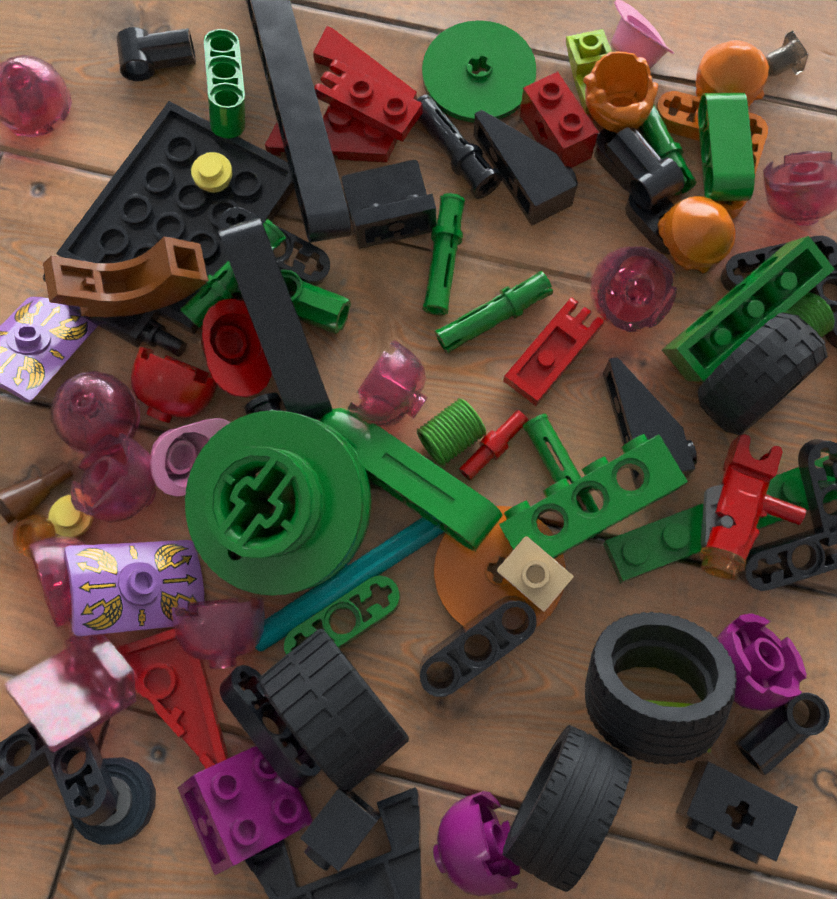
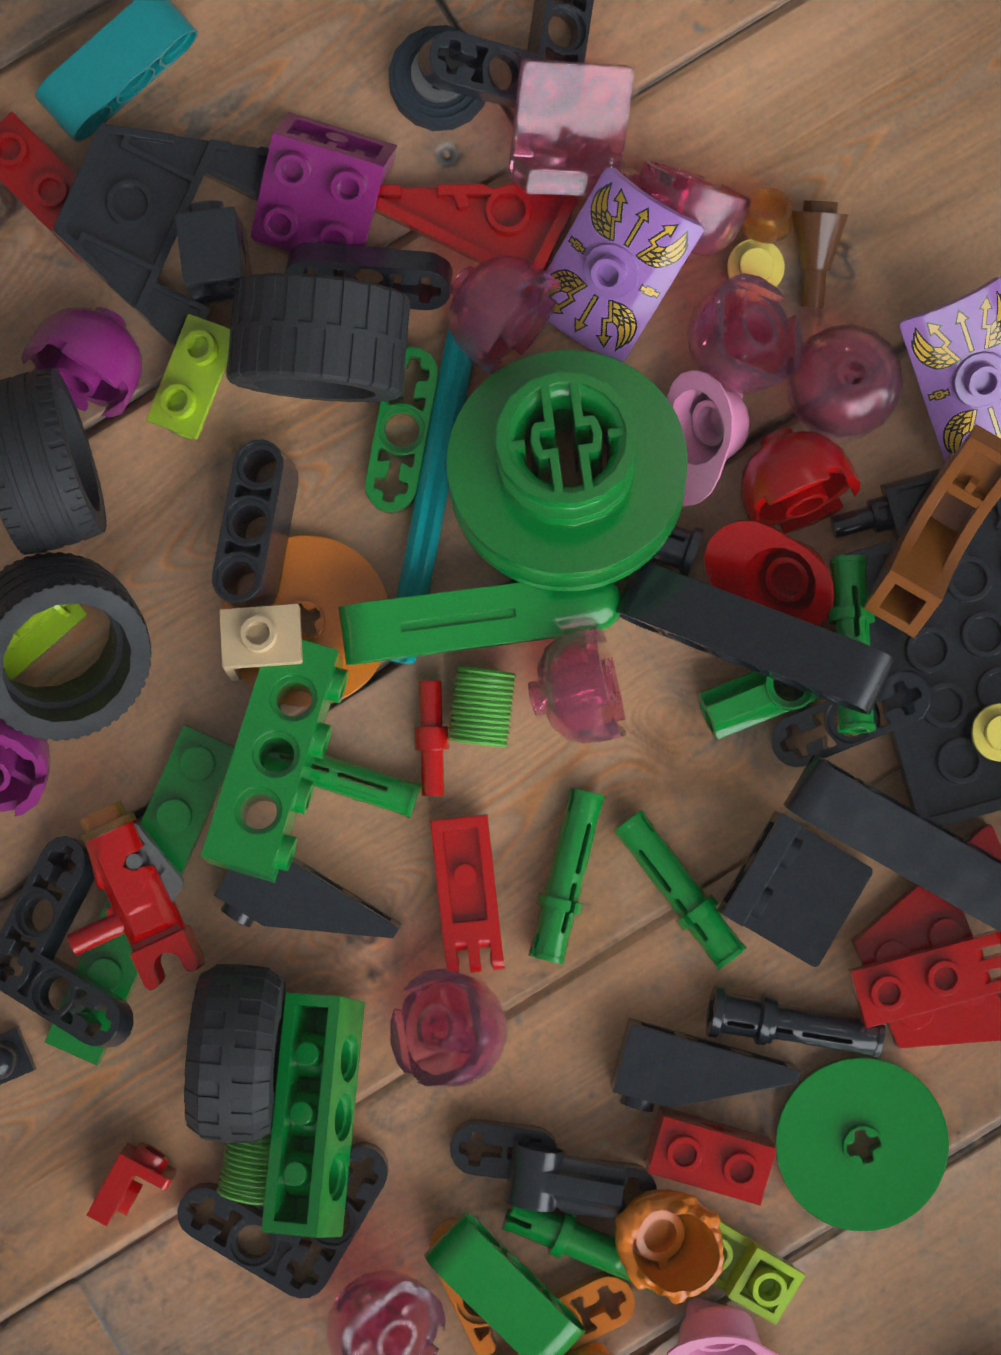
camera: 130 degrees right, 15 degrees up
(426, 770) = (191, 378): none -> lime hinge
(697, 233) = (444, 1164): orange hair -> none

